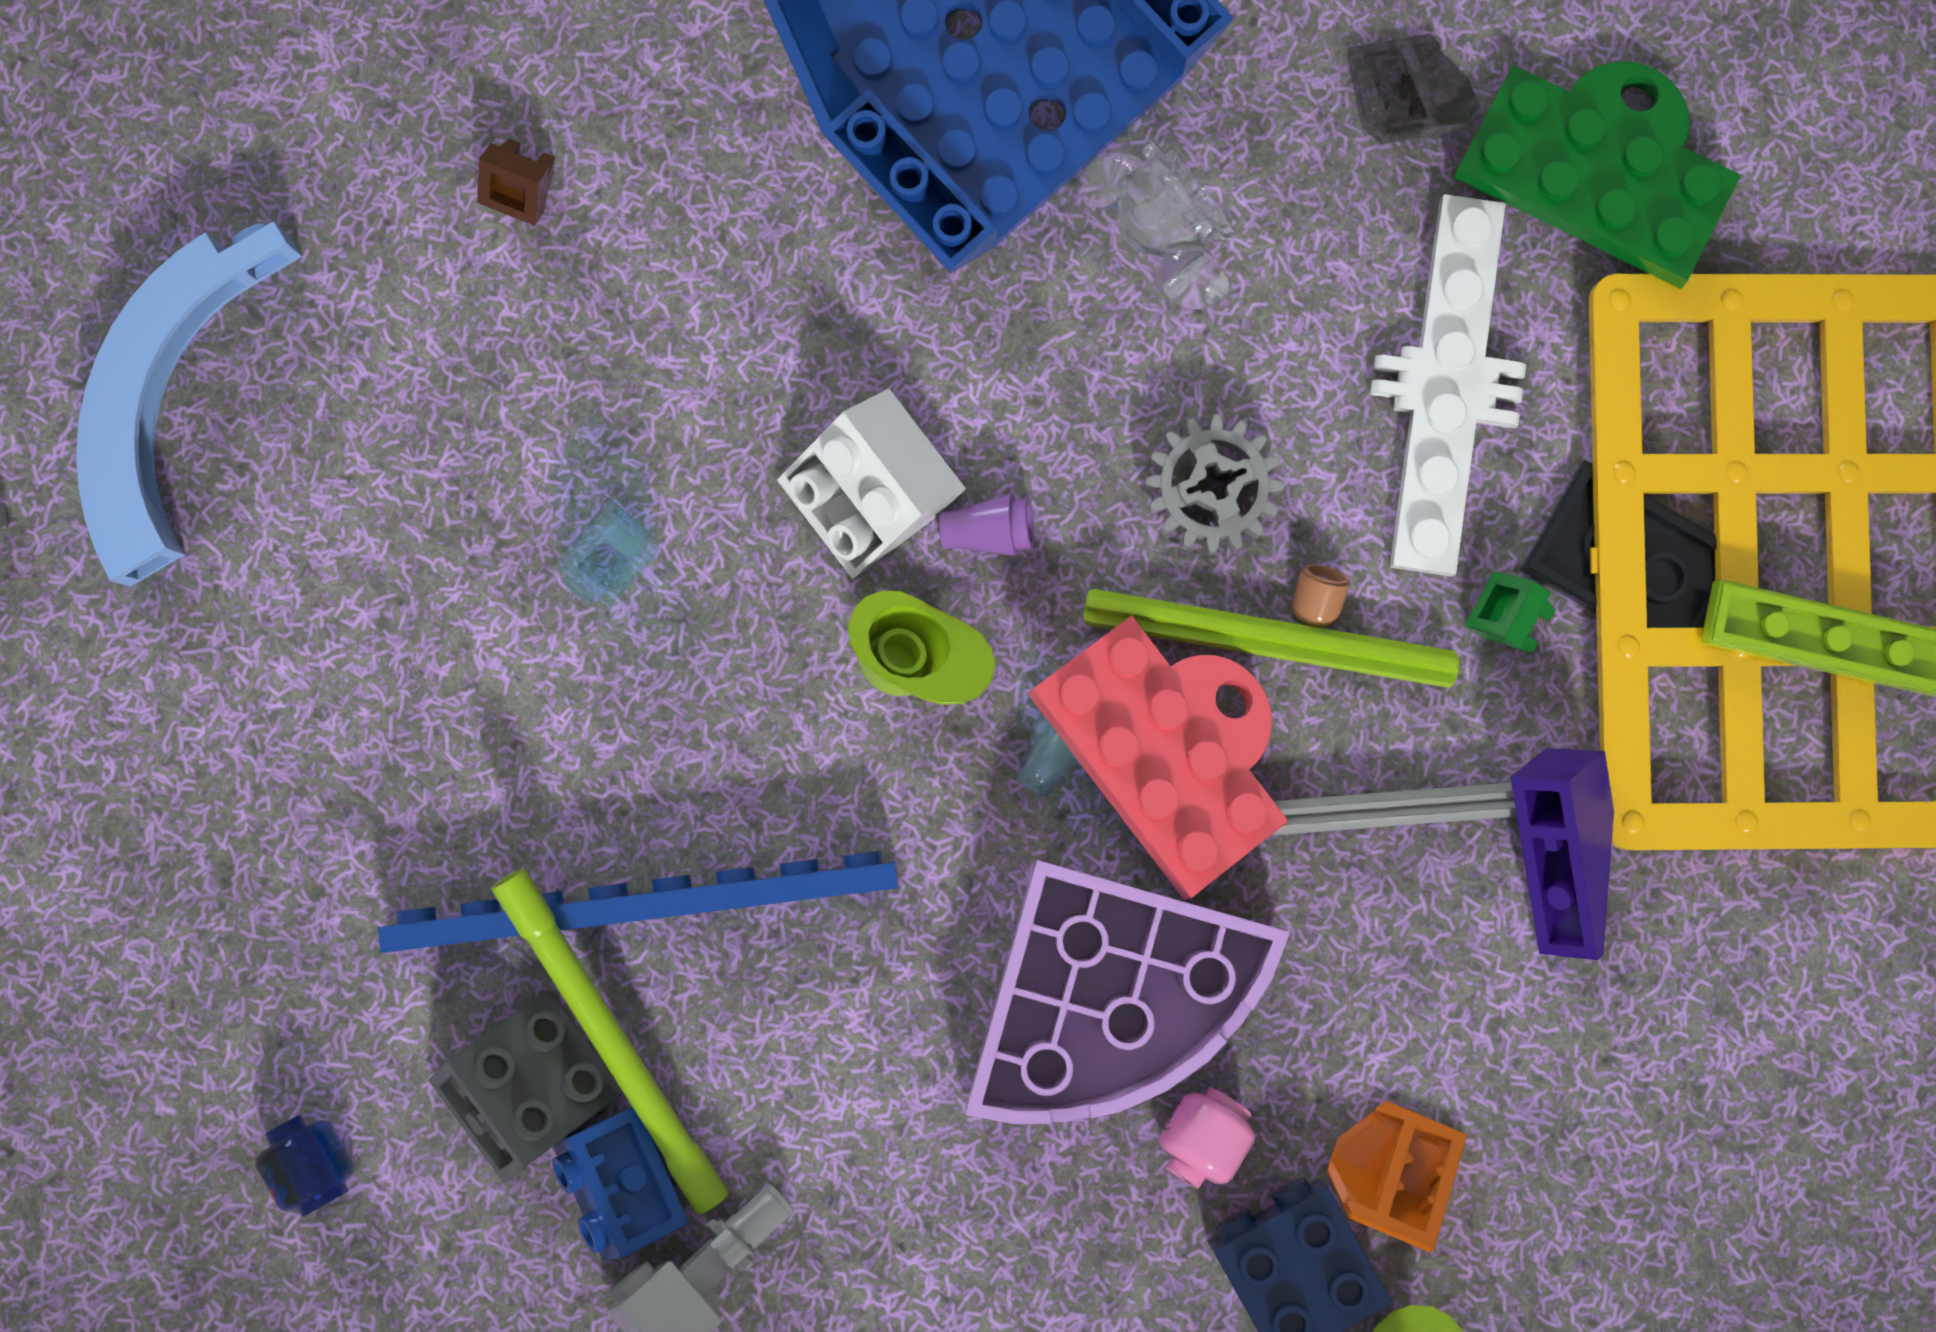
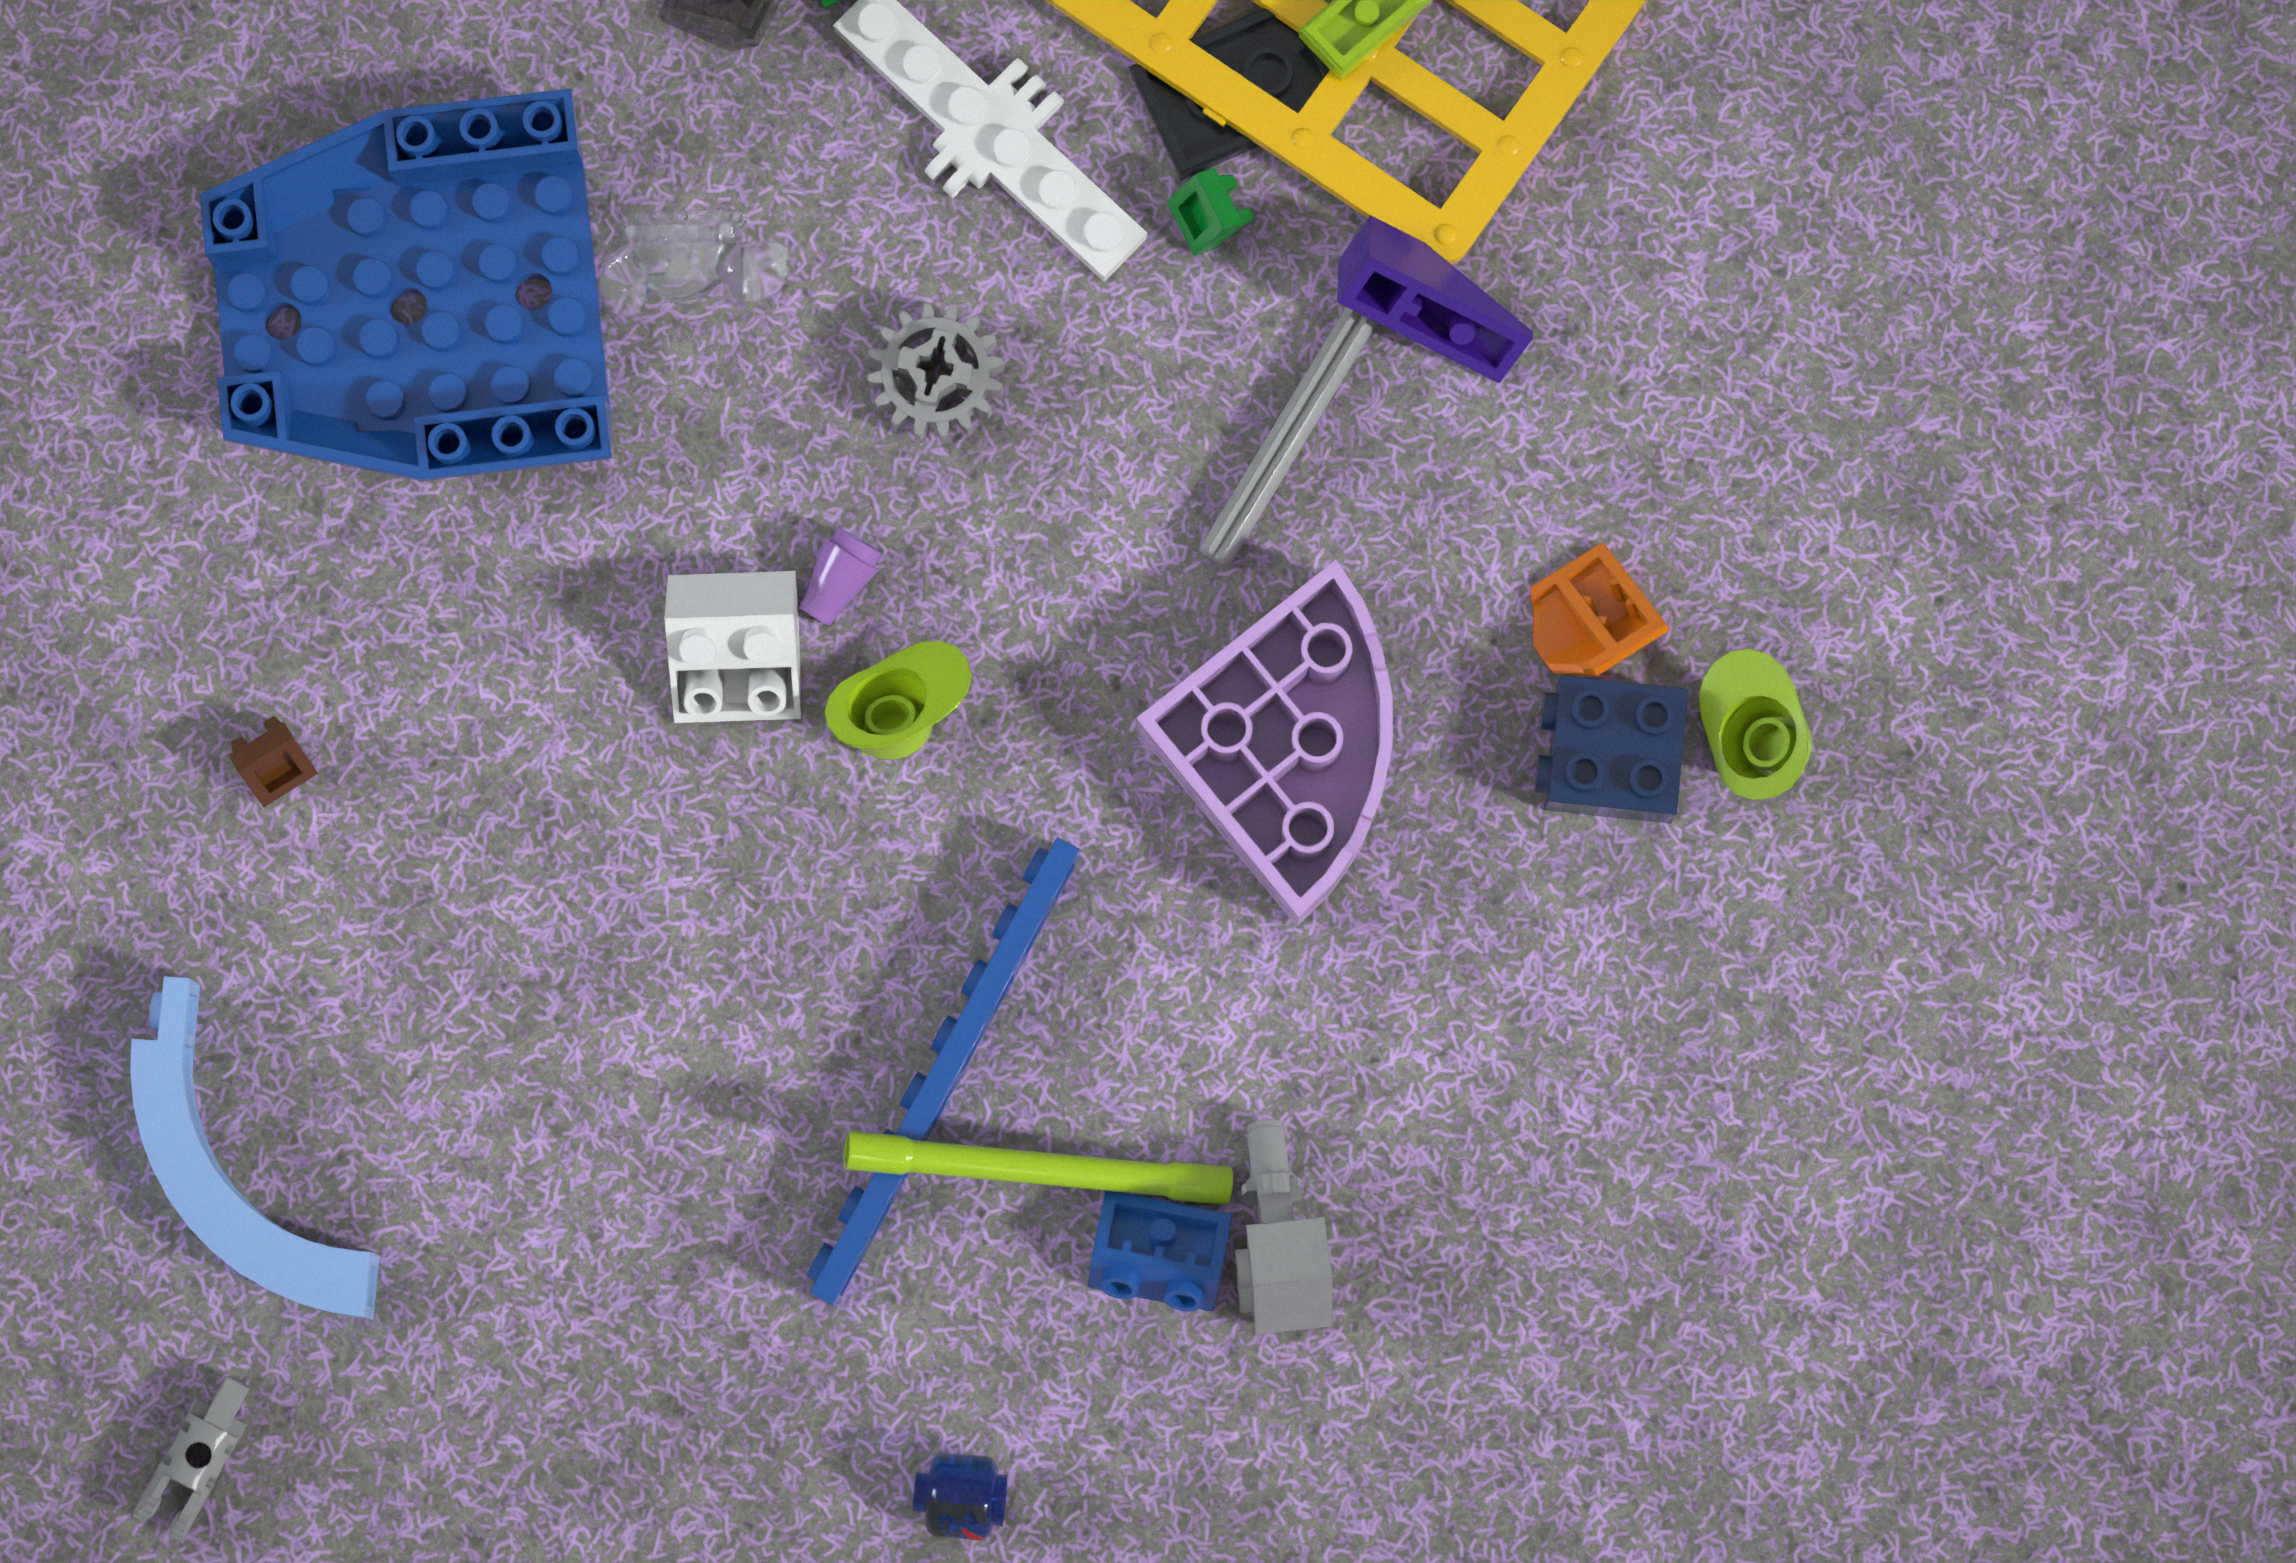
camera: 55 degrees left, 5 degrees down
(525, 1085) = (1025, 1274): dark grey bracket -> none
(608, 581) = (653, 883): clear light blue brick -> none
(1045, 759) = (1055, 648): clear light blue cone -> none
(1167, 750) = (1122, 557): coral plate -> none
(1207, 1137) = (1456, 746): bright pink head -> none
(1274, 638) = (1092, 416): lime axle -> none
(1319, 600) = (1089, 355): nougat piece -> none

